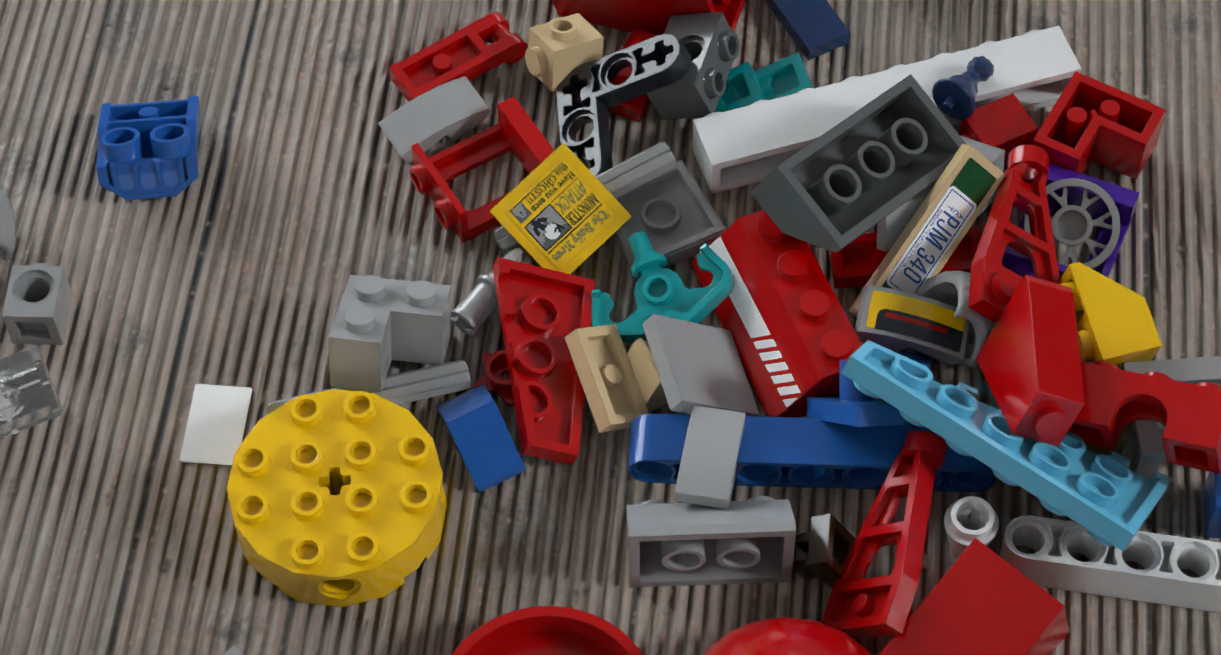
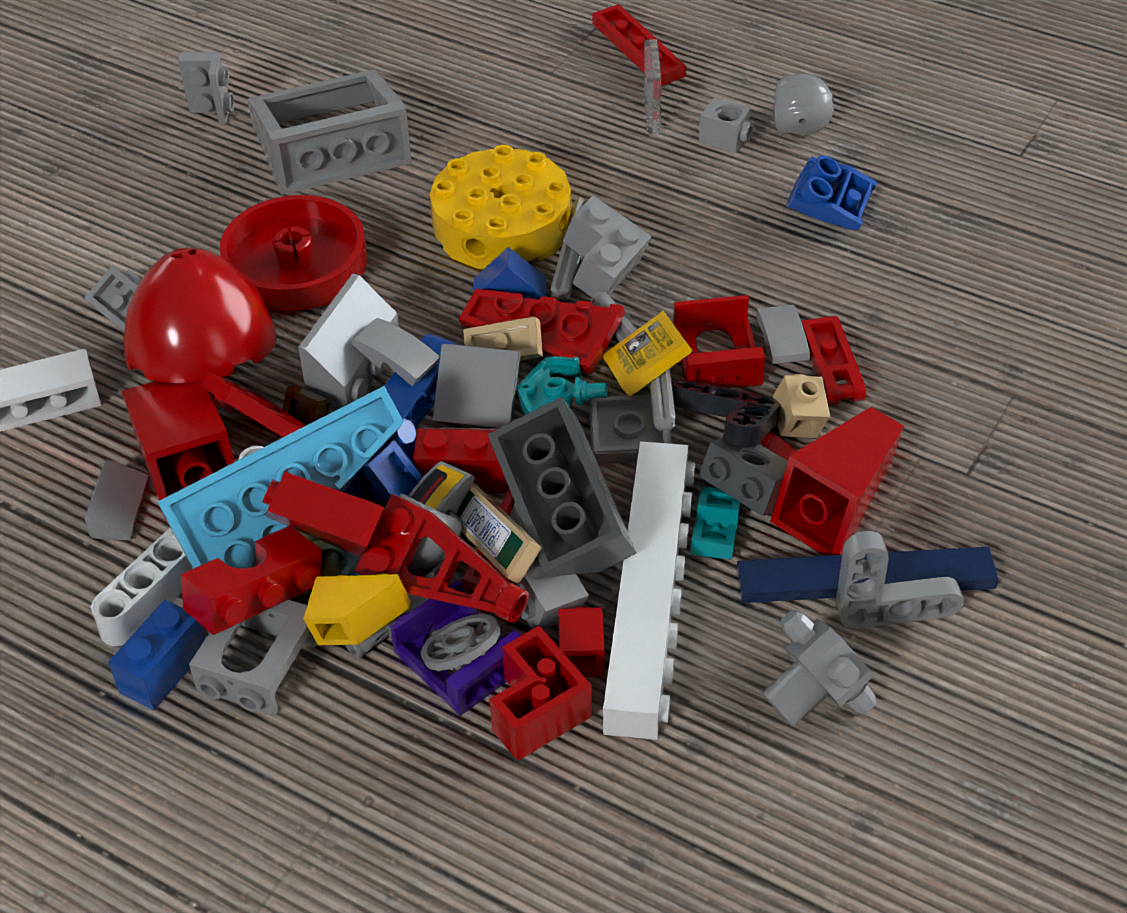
camera: 115 degrees right, 10 degrees down
(215, 424) = (606, 189): white sticker -> none
(957, 94) = (614, 598): dark blue piece -> none

